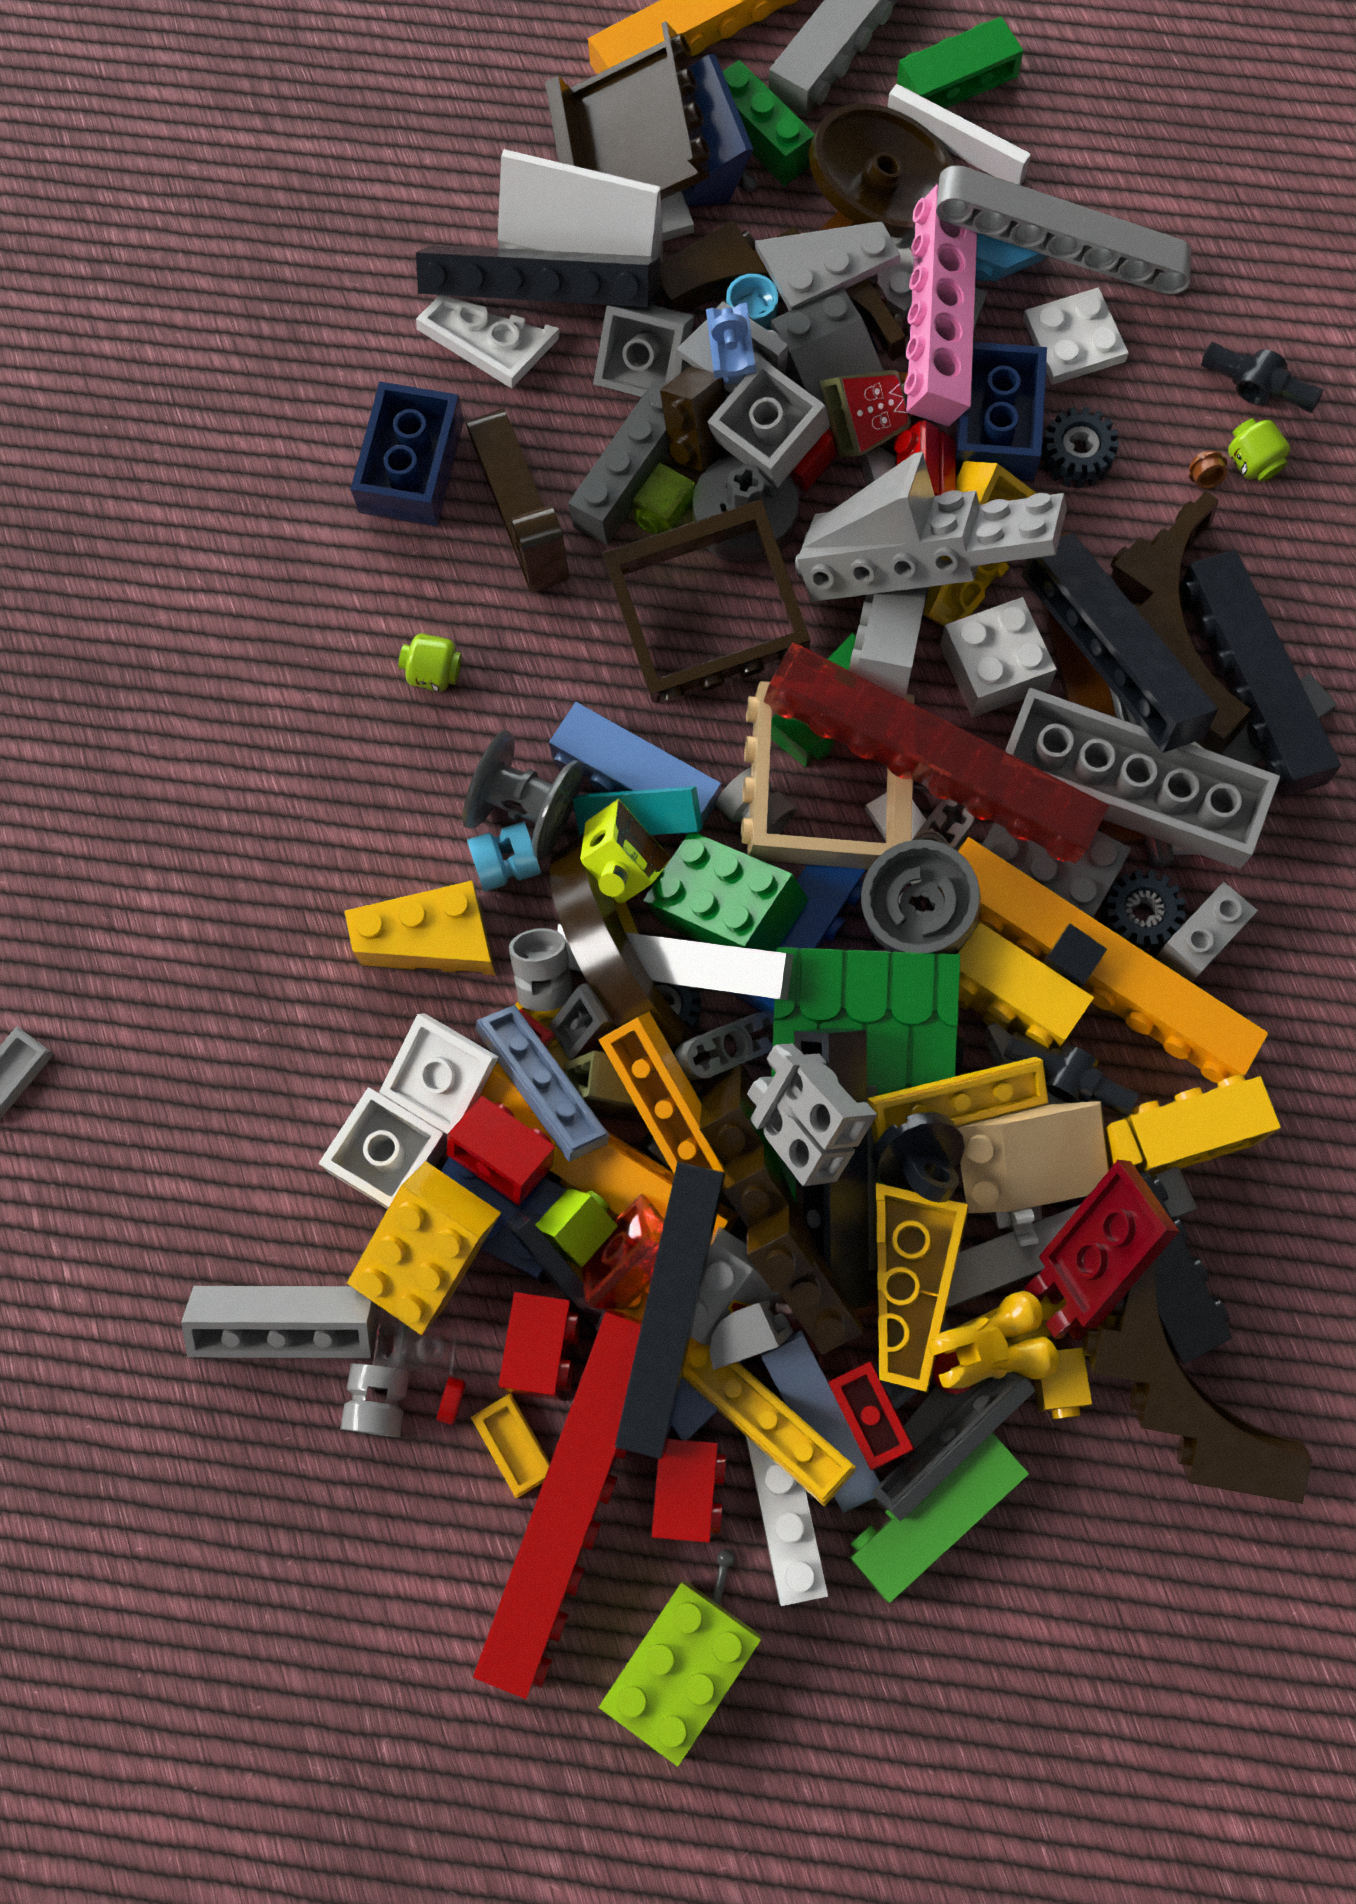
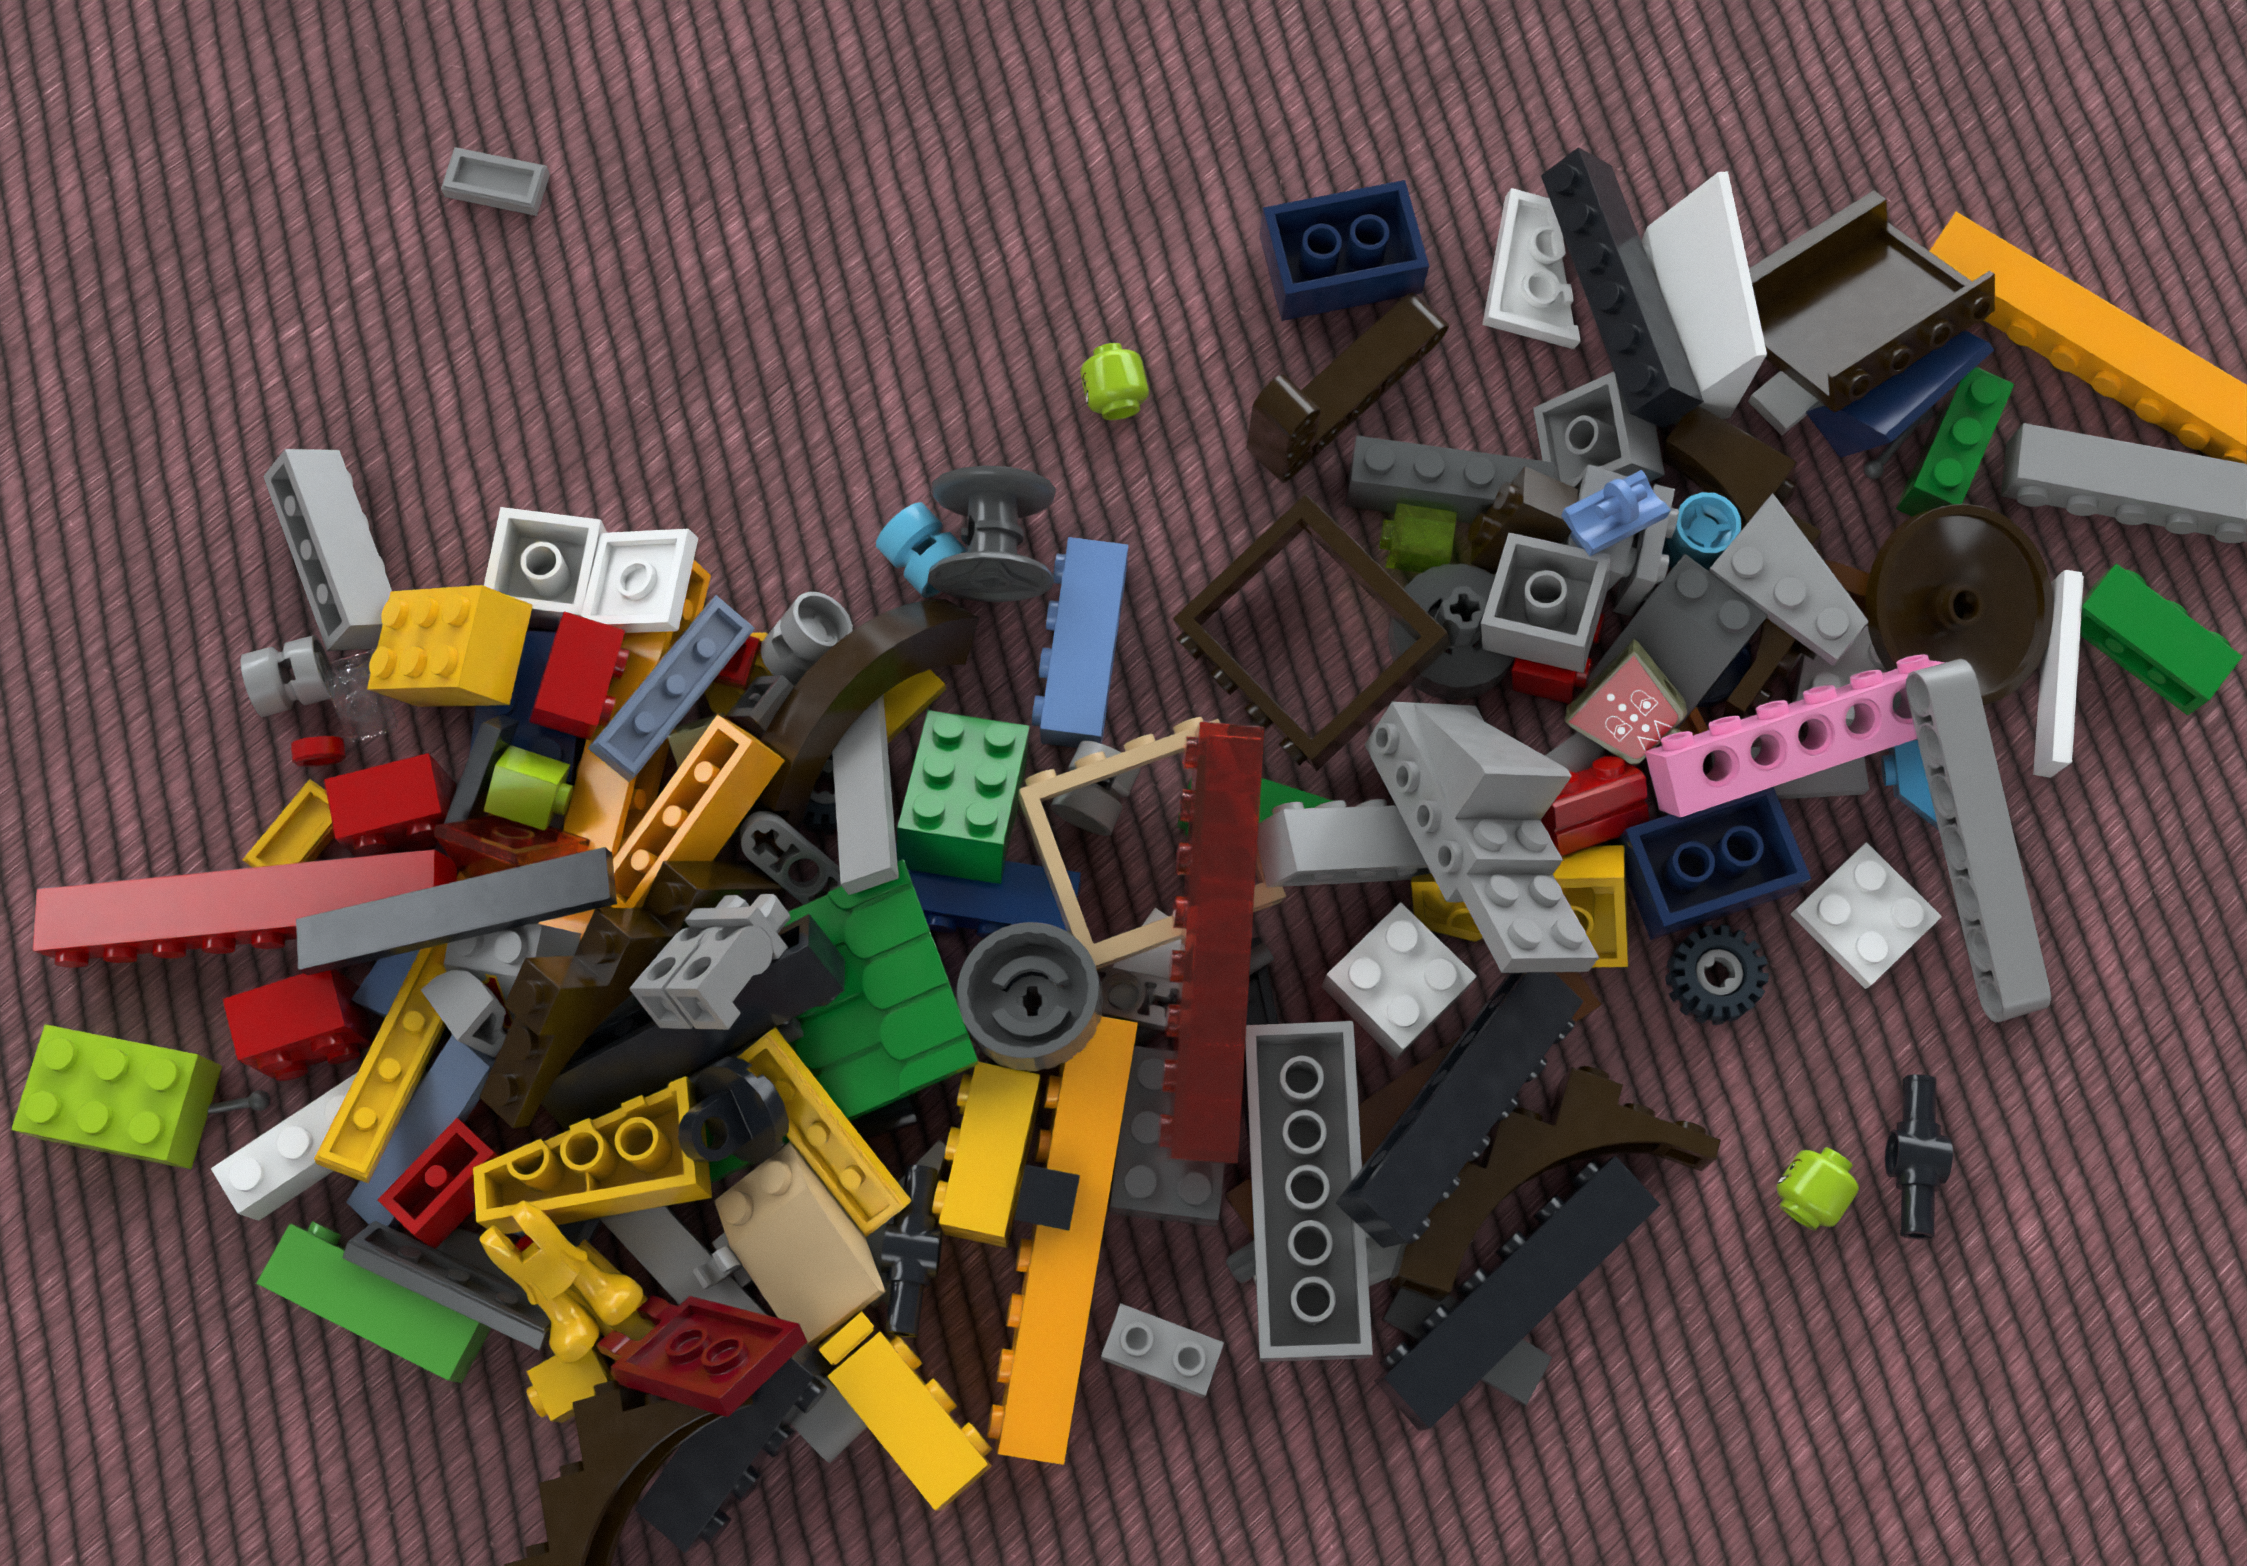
camera: 60 degrees right, 0 degrees up
(423, 931) = (809, 509): yellow wedge -> none
(621, 853) = (966, 664): neon yellow torso -> none
(656, 809) = (1028, 664): teal tile -> none
(1158, 895) = (1175, 1244): black bush -> none
(1208, 469) = (1763, 1137): dark orange plate -> none

